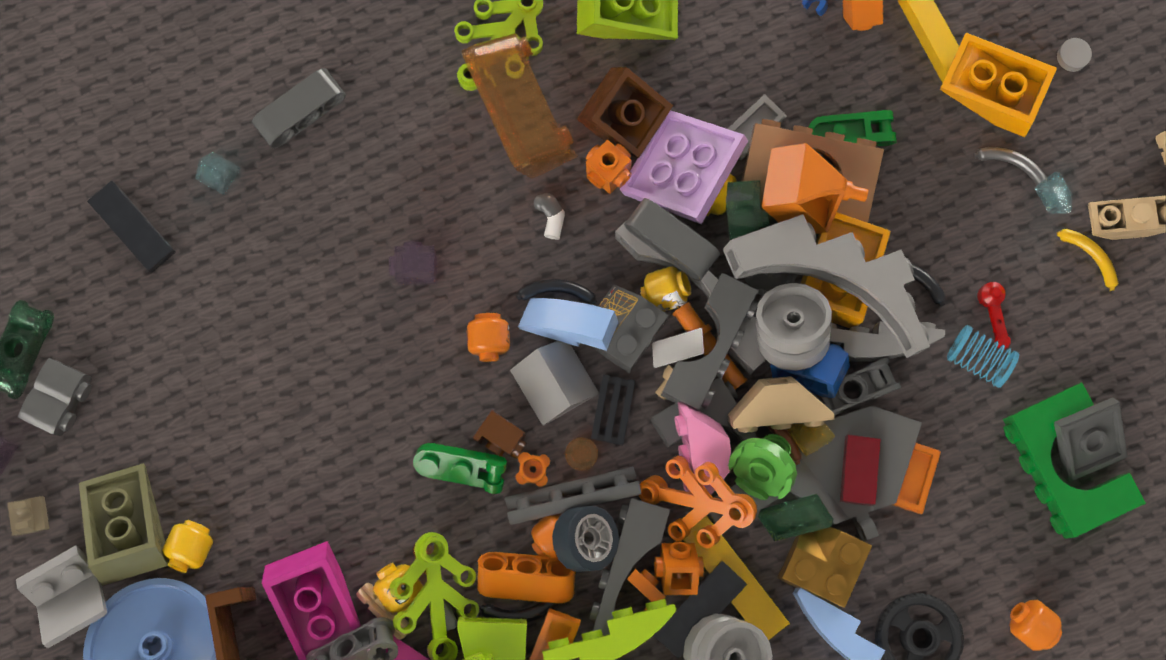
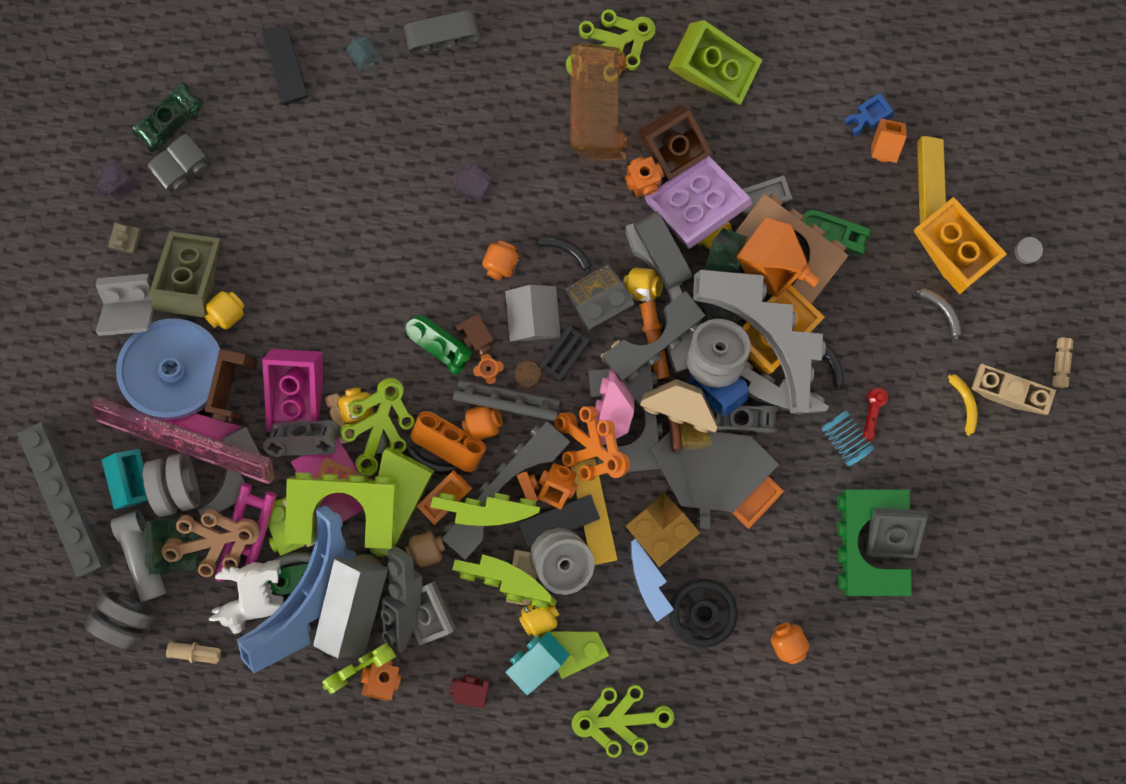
camera: 30 degrees right, 5 degrees up
(553, 211) = (589, 191): arm -> none
(569, 322) = (562, 276): light blue slope -> none
(600, 536) = (512, 432): black wheel -> none
(678, 348) = (631, 330): white sticker -> none
(764, 466) = (649, 442): bright green tile -> none
(795, 517) = (656, 488): clear green plate -> none
(860, 470) = (718, 477): dark red tile -> none
(1055, 194) = (961, 346): clear light blue slope -> none

